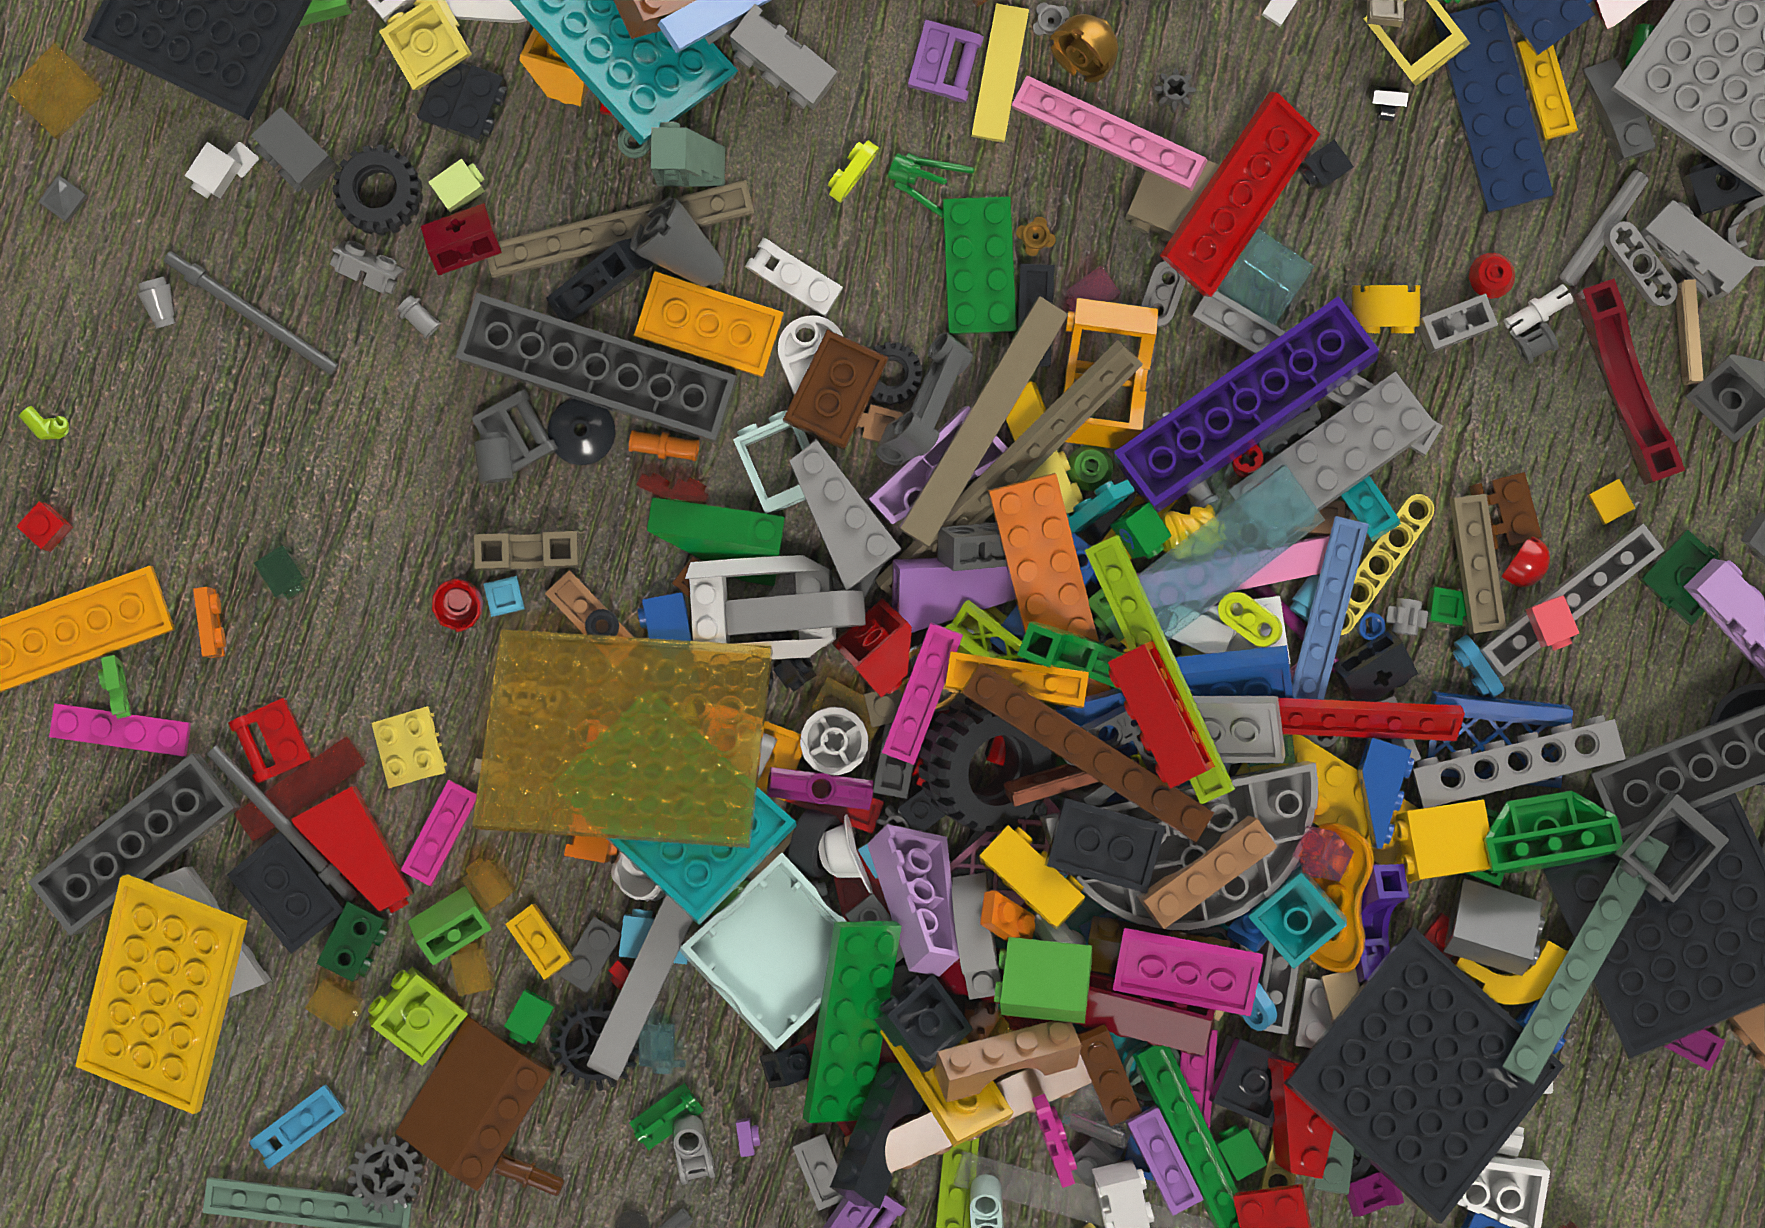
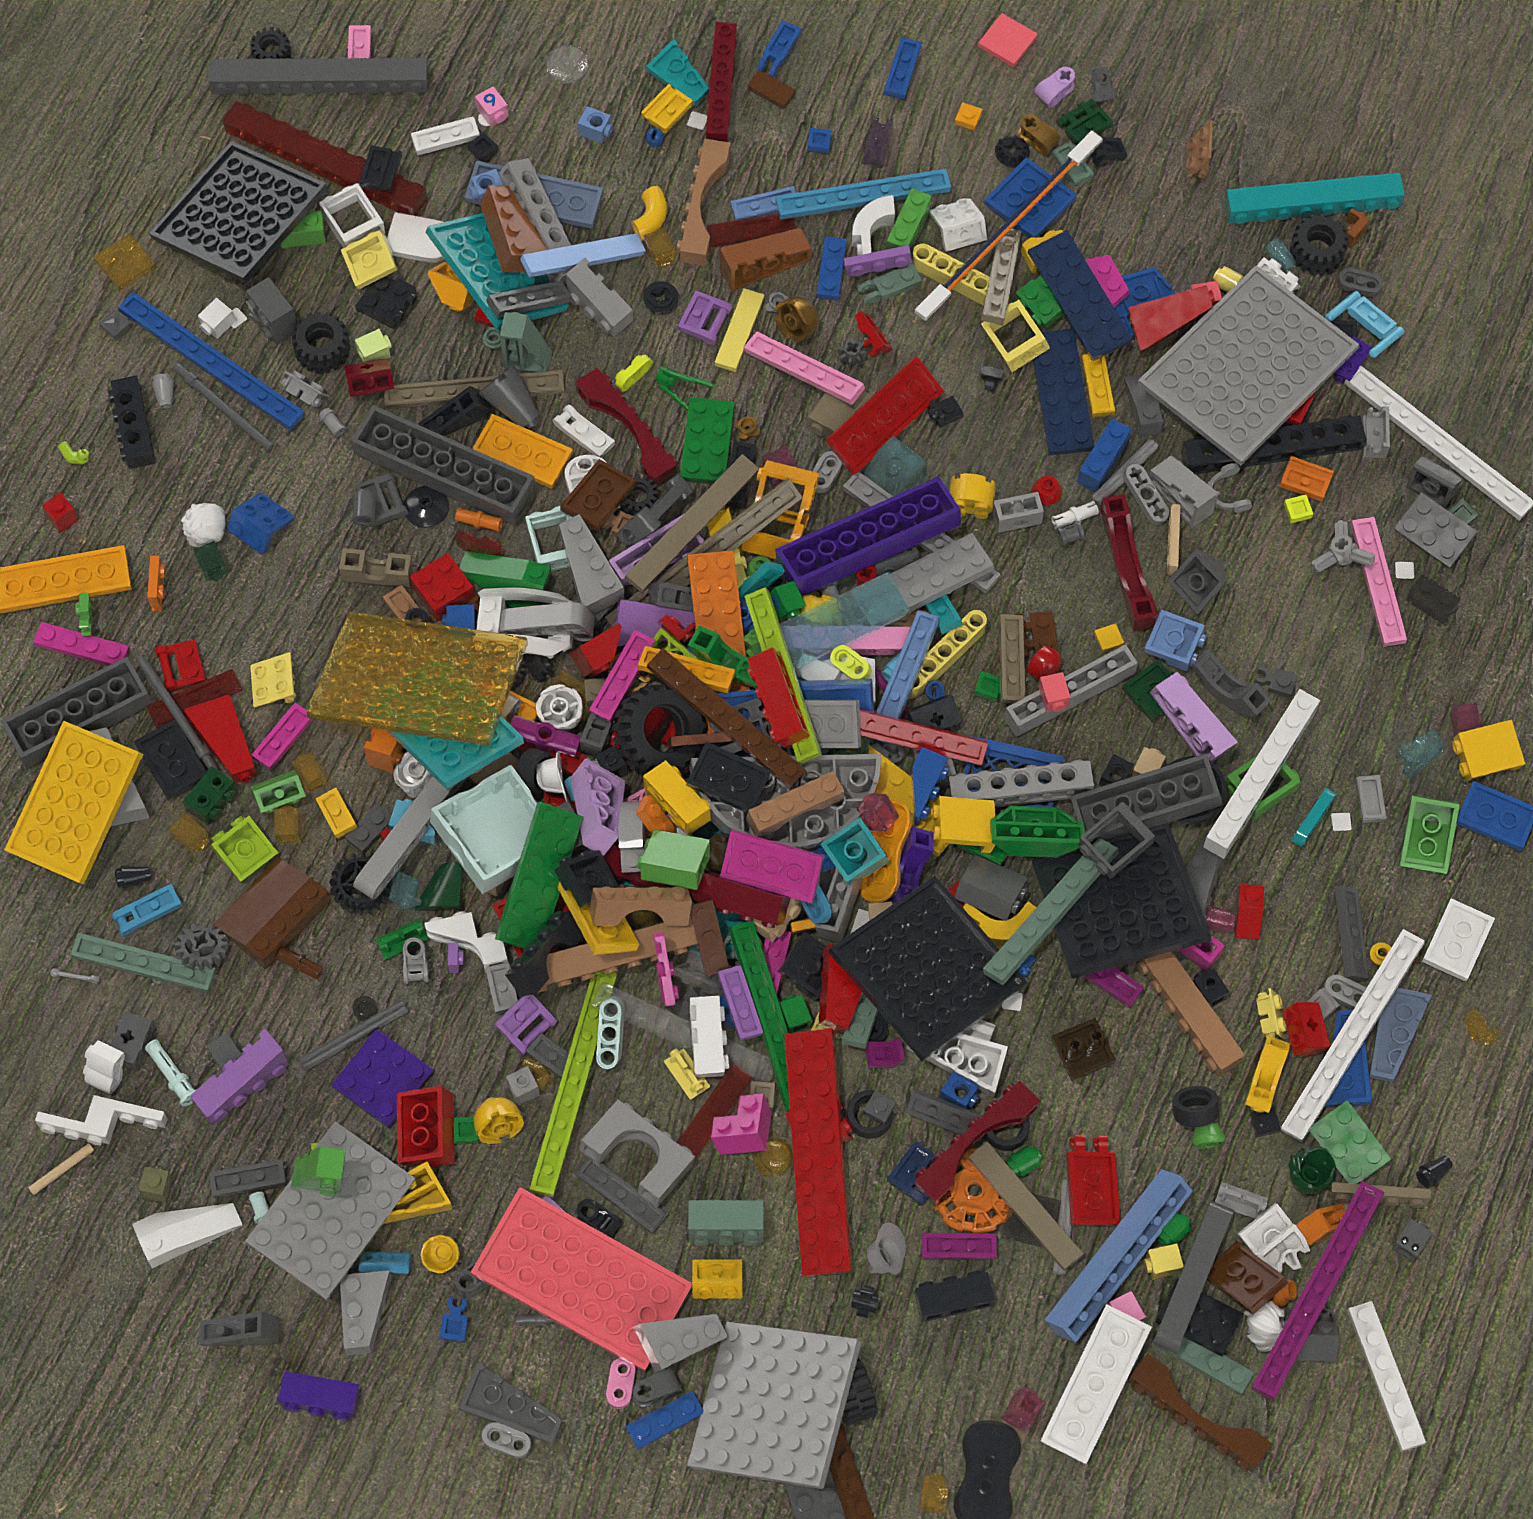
camera: 10 degrees right, 20 degrees down
(149, 406) = (127, 390): none -> black brick
(218, 241) = (211, 361): none -> blue plate
(261, 515) = (204, 524): none -> white hair
(264, 1079) = (130, 875): none -> black cone
(342, 495) = (258, 521): none -> blue bracket
(457, 604) = (323, 595): red hair -> none
(504, 596) = (355, 598): medium azure tile -> none
(529, 1017) = (320, 859): green brick -> none
(629, 565) = (441, 586): none -> red brick
(680, 84) = (529, 298): none -> dark grey plate
(712, 1034) = (443, 888): none -> dark green slope
(752, 1097) = (461, 929): none -> white arch
(786, 1066) = (487, 913): black bracket -> none
(810, 215) = (600, 395): none -> dark red arch
(865, 22) = (656, 290): none -> black gear
(986, 601) = (672, 625): none -> red bracket
(1195, 44) = (877, 339): none -> red plate
(1229, 1022) = (802, 926): none -> light orange tile
(1407, 617) = (960, 687): light grey gear -> none
(1485, 678) = (999, 718): dark azure plate -> none
(1572, 209) = (1104, 455): none -> blue brick
(1649, 1143) = (1083, 1049): none -> dark brown plate
(1661, 713) = (1116, 766): none -> black brick
(1693, 700) = (1149, 760): none -> tan brick
(1711, 496) = (1176, 640): none -> medium blue plate

